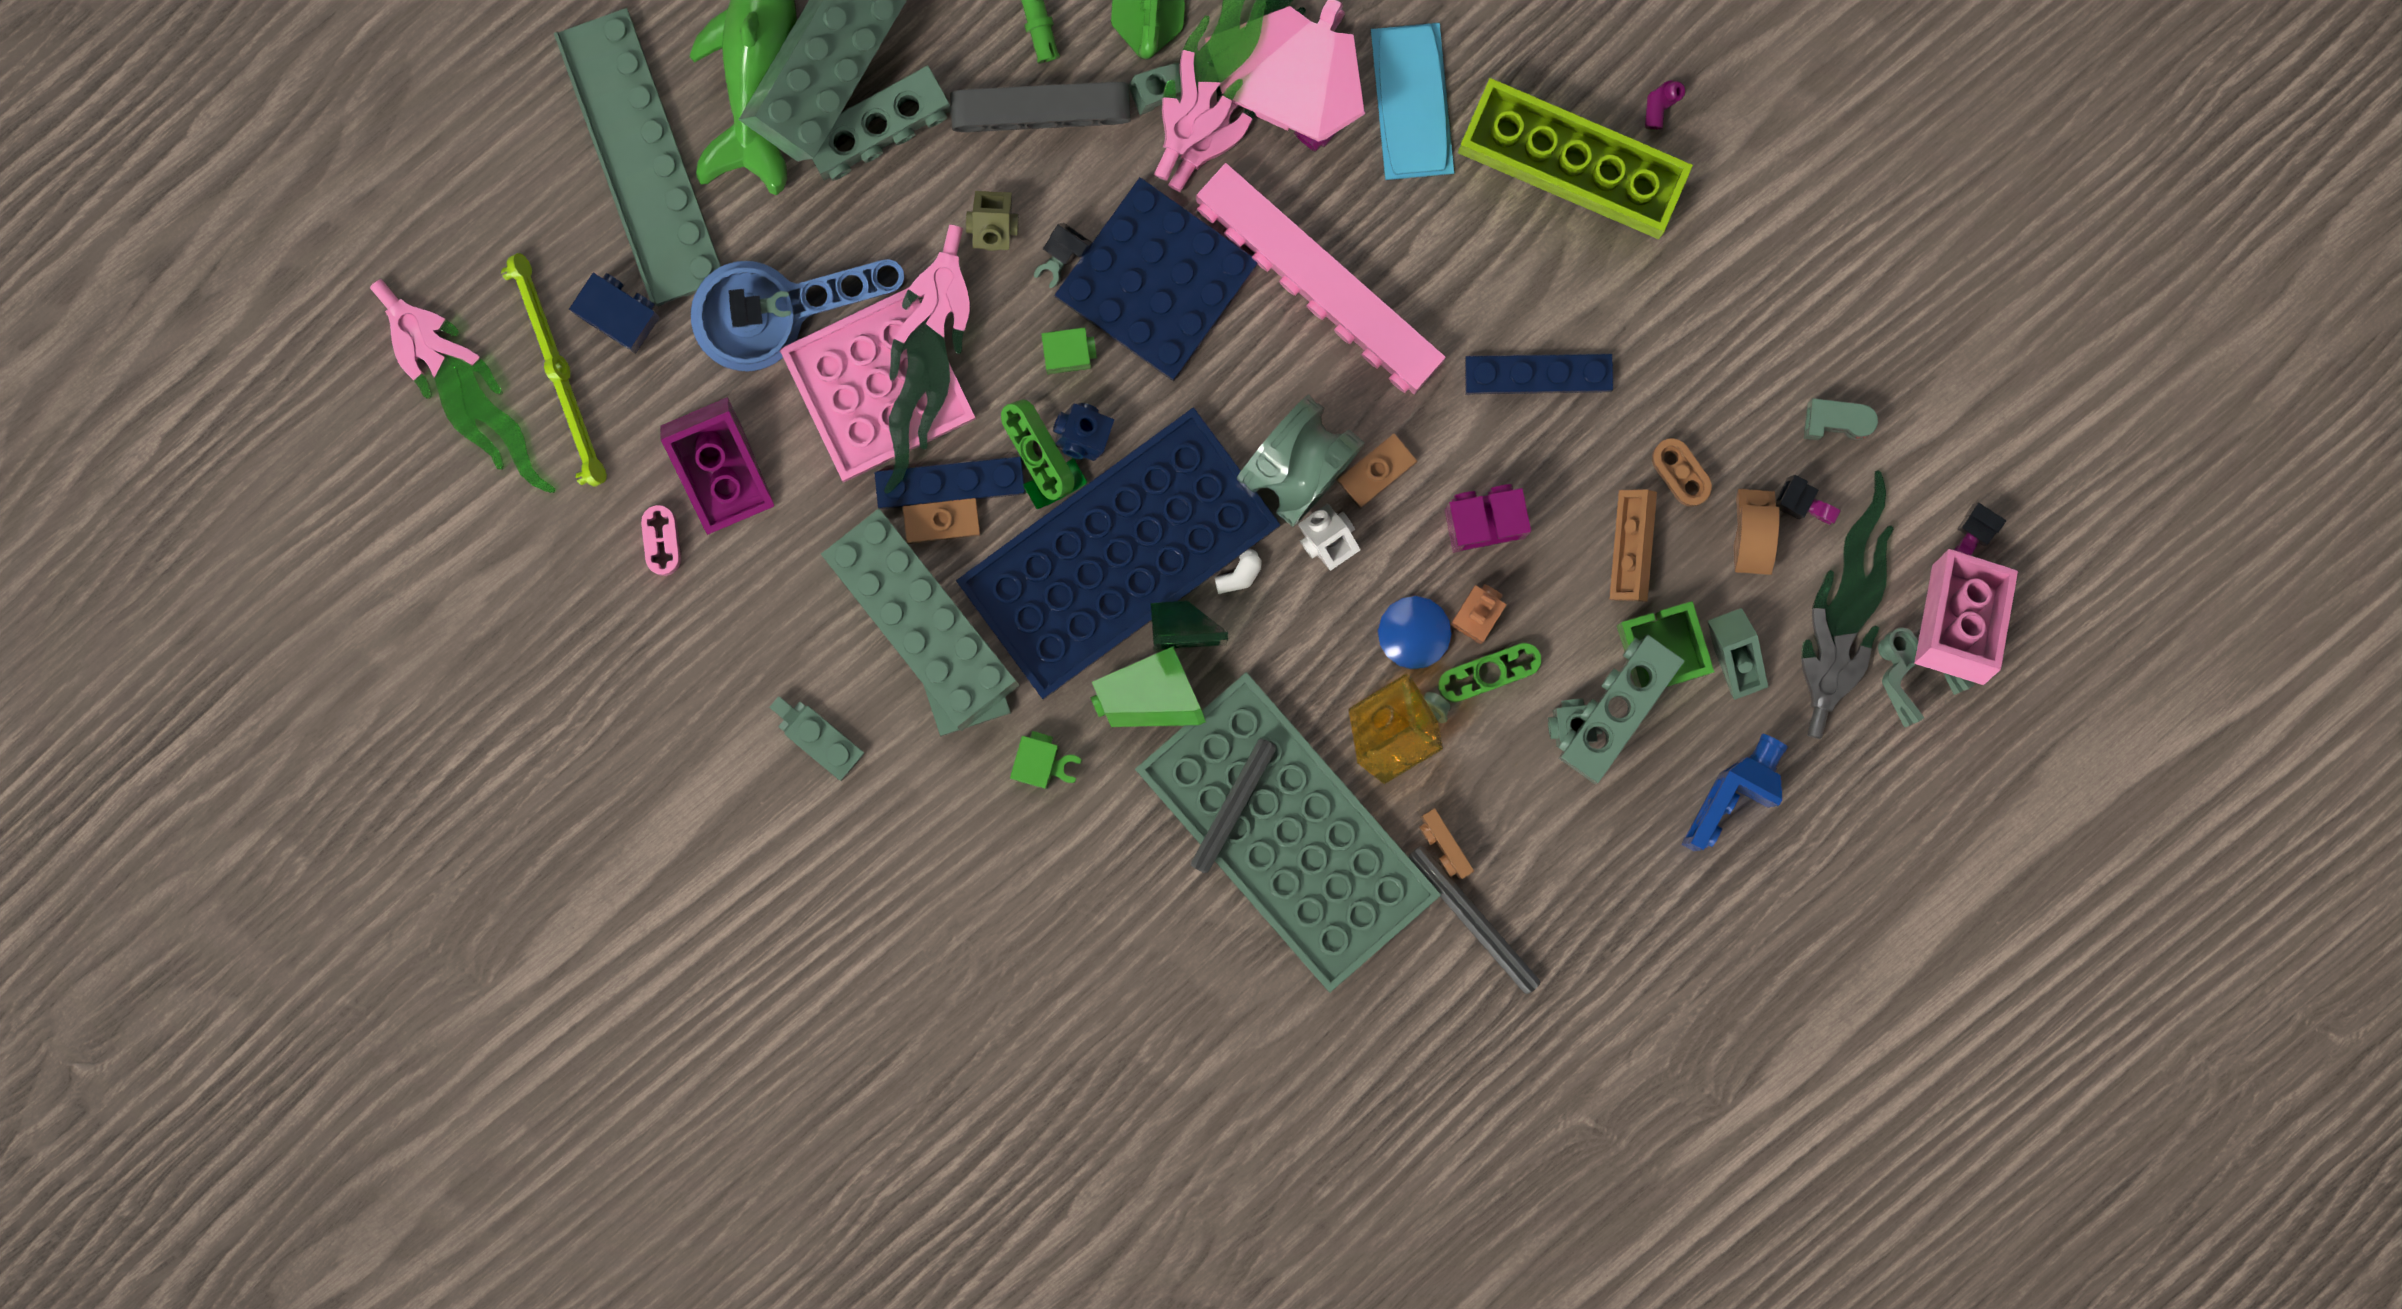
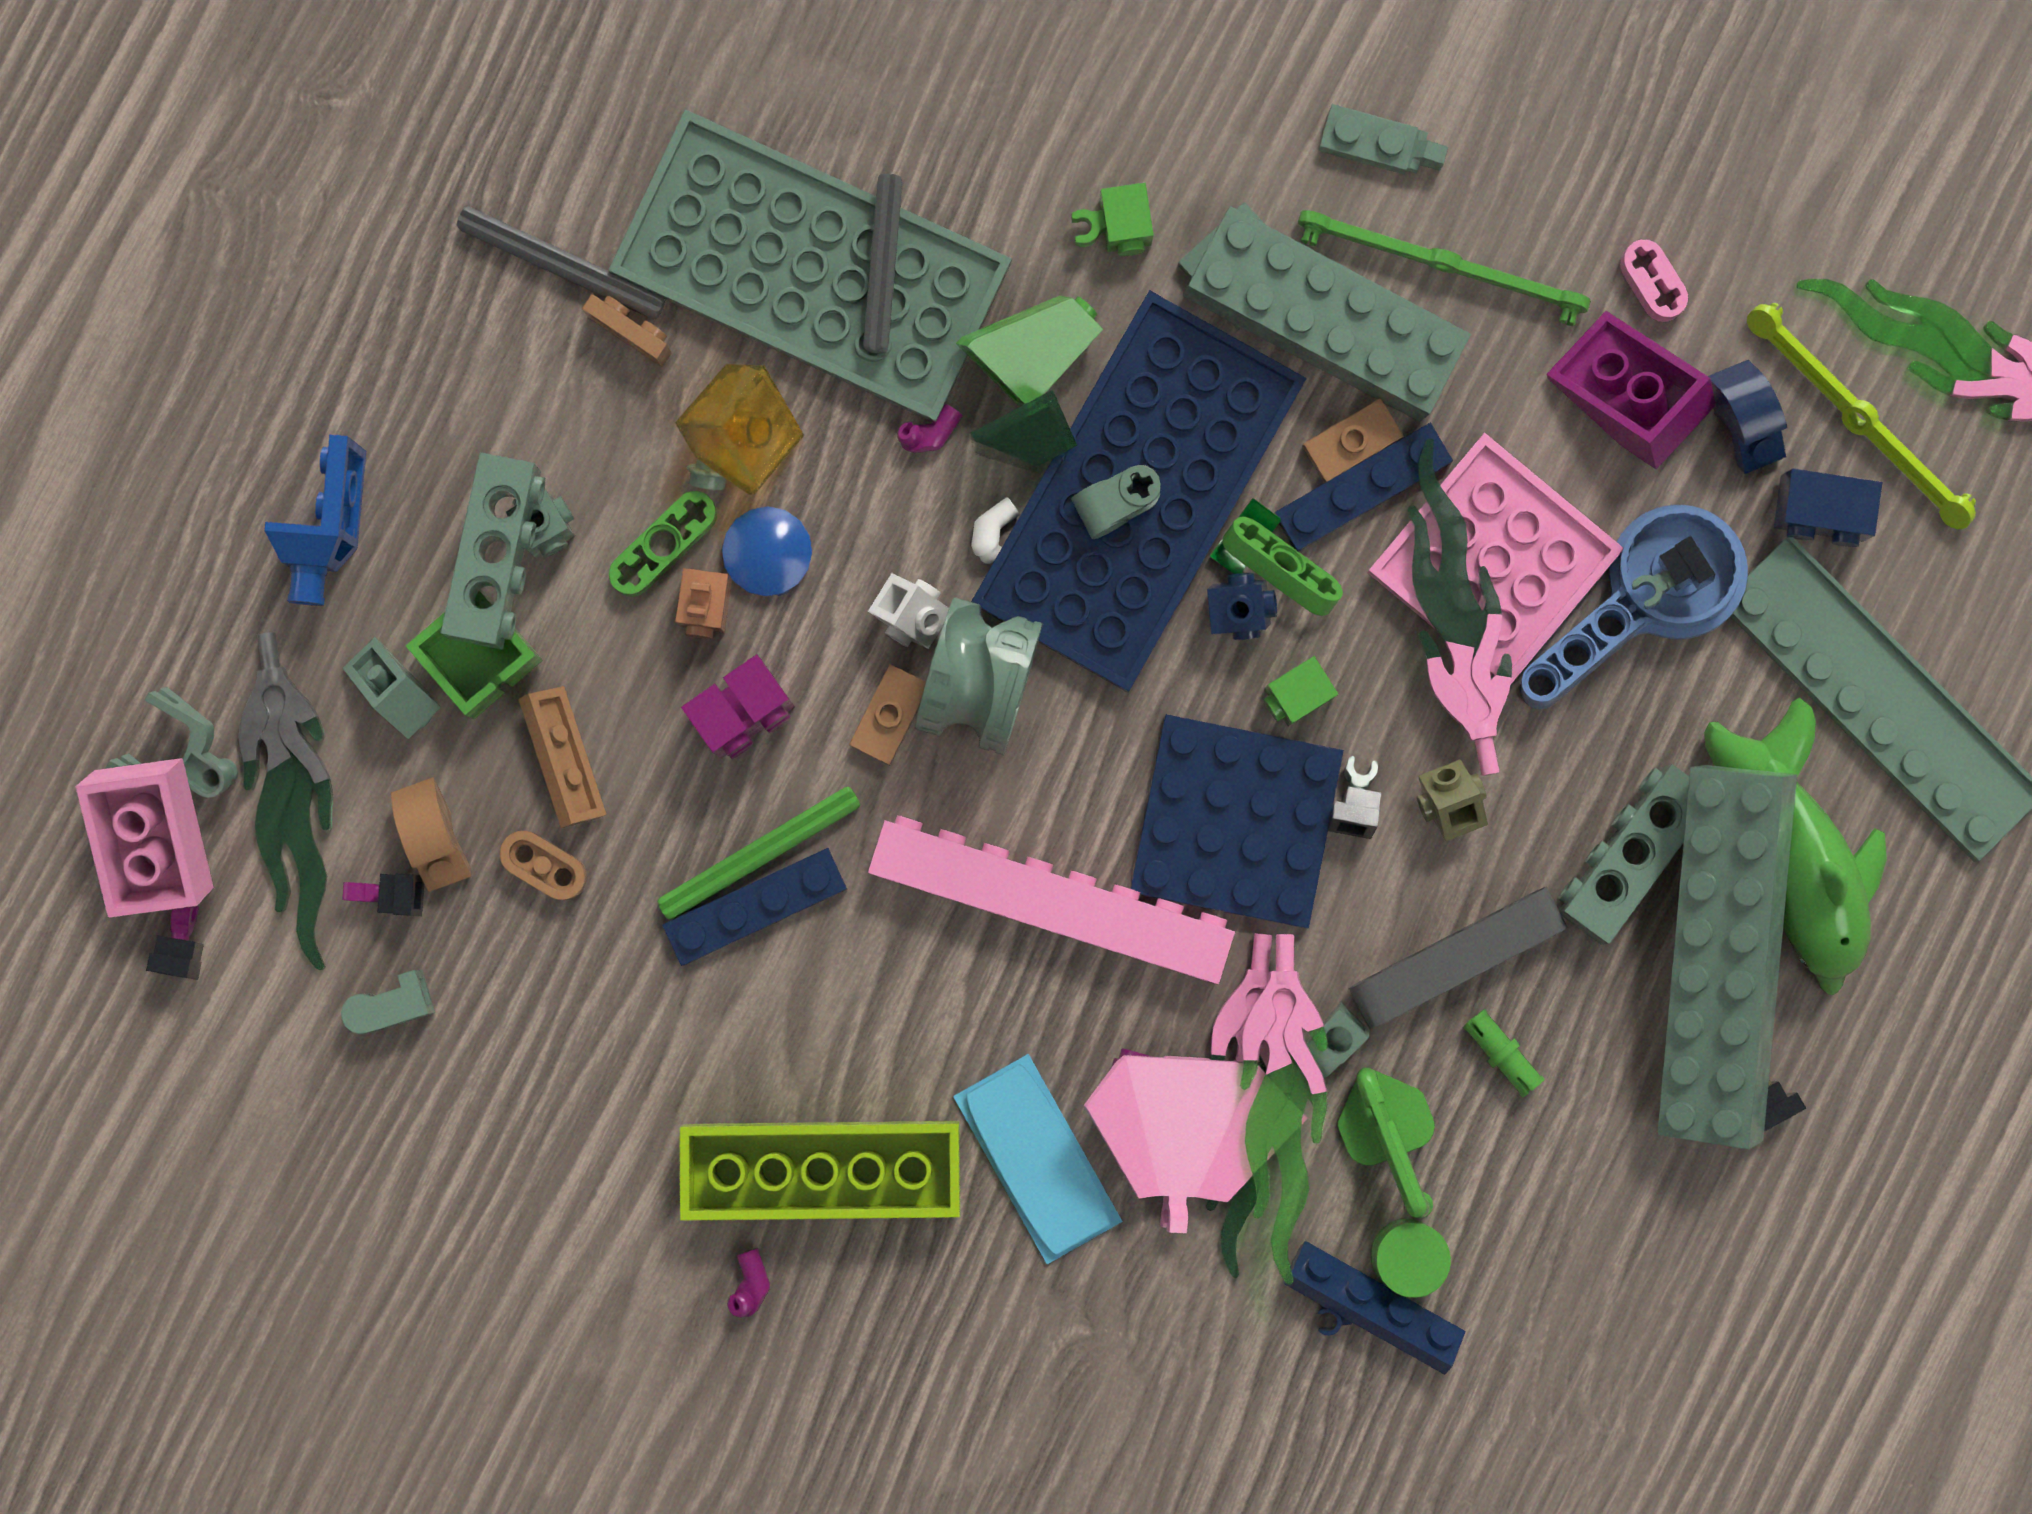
camera: 155 degrees right, 0 degrees up
(640, 407) = (1751, 413): none -> dark blue brick
(731, 549) = (1444, 260): none -> bright green piece
(1146, 548) = (1110, 505): none -> sand green piece
(1255, 665) = (929, 436): none -> magenta arm
(1518, 412) = (758, 853): none -> bright green axle

